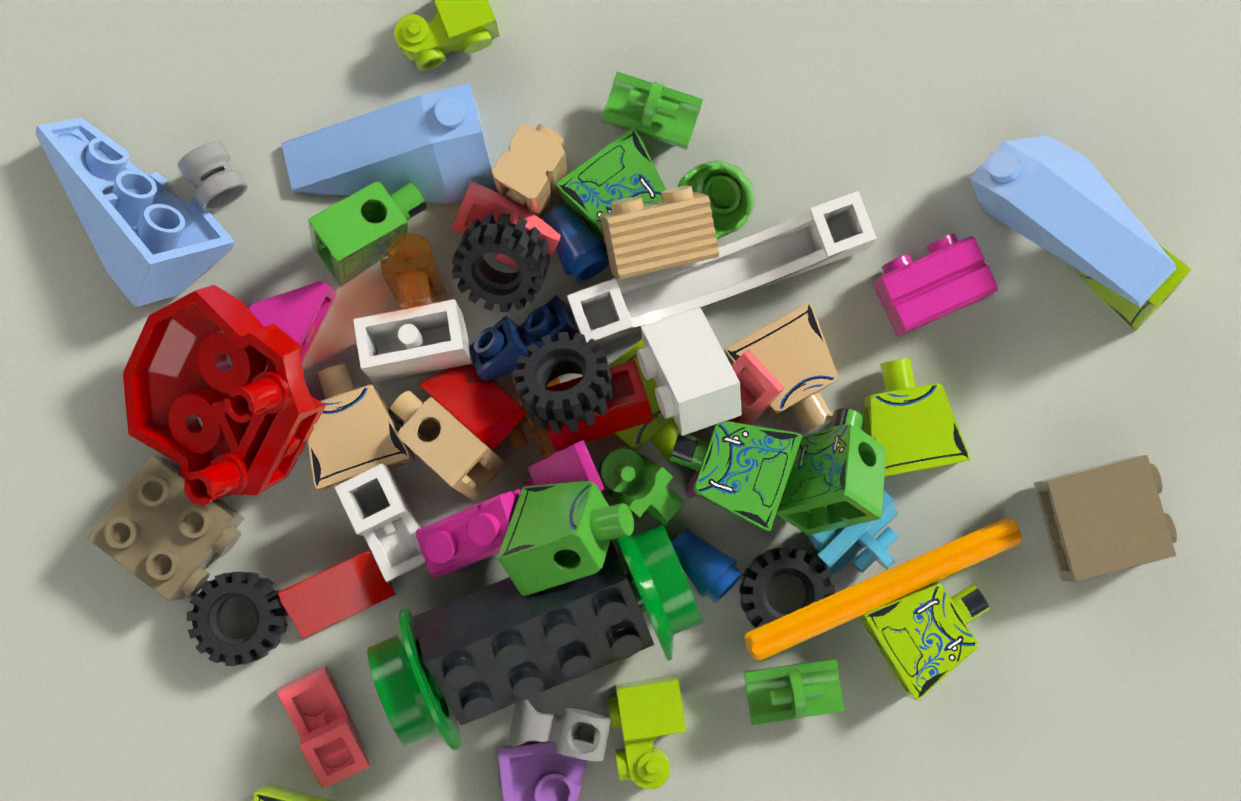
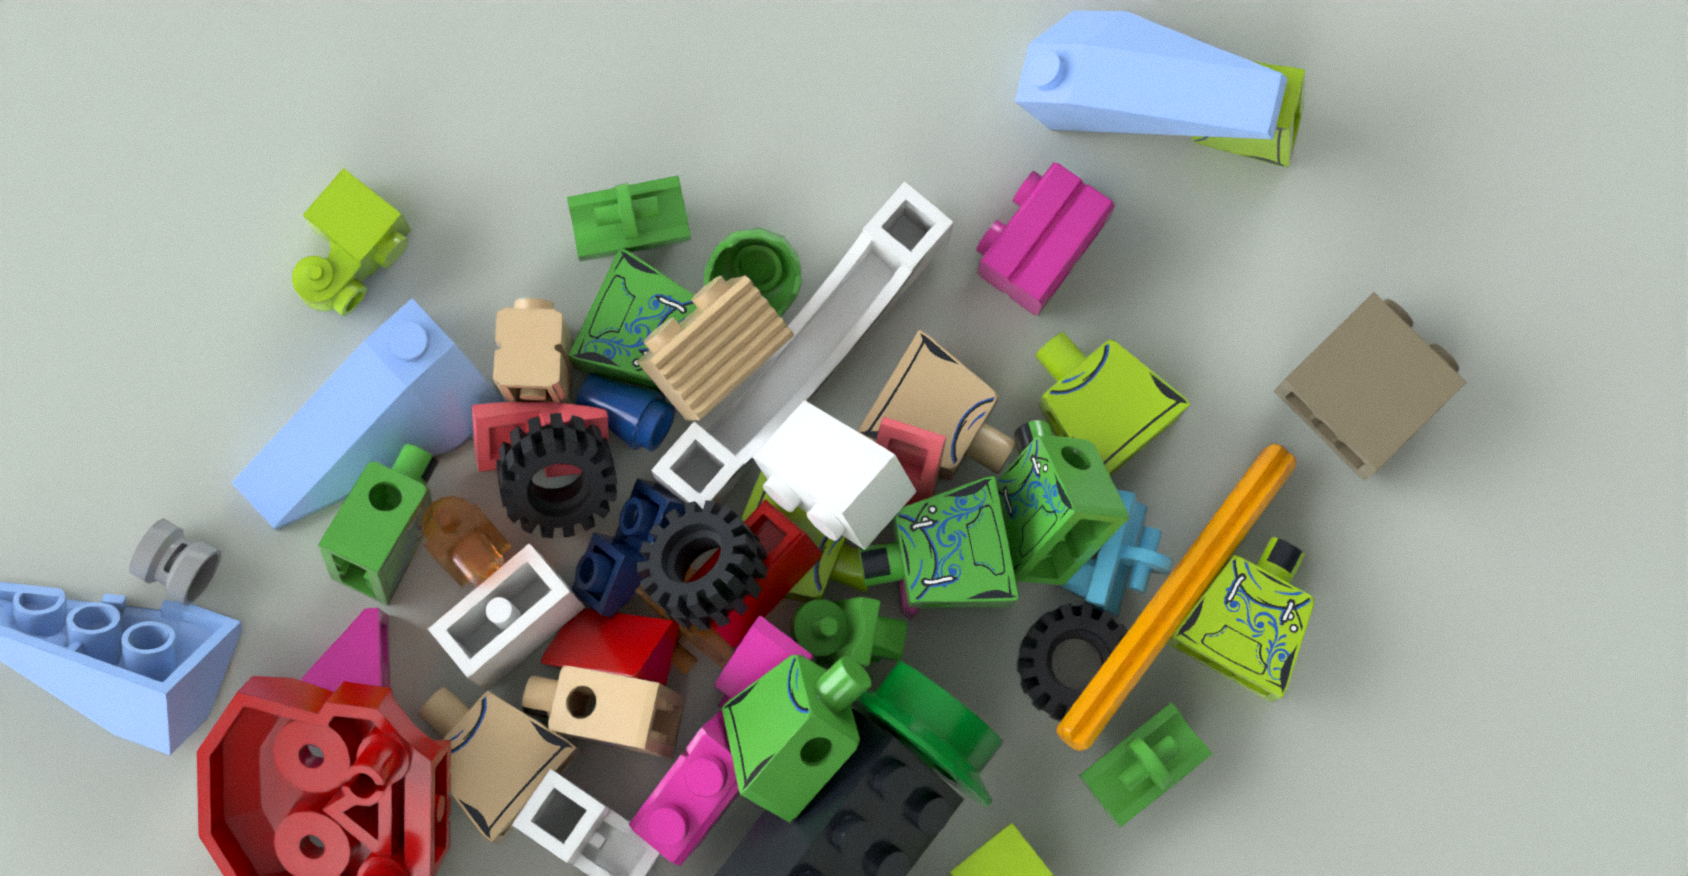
camera: 30 degrees left, 5 degrees down
(706, 566) = (976, 682): blue cone -> none

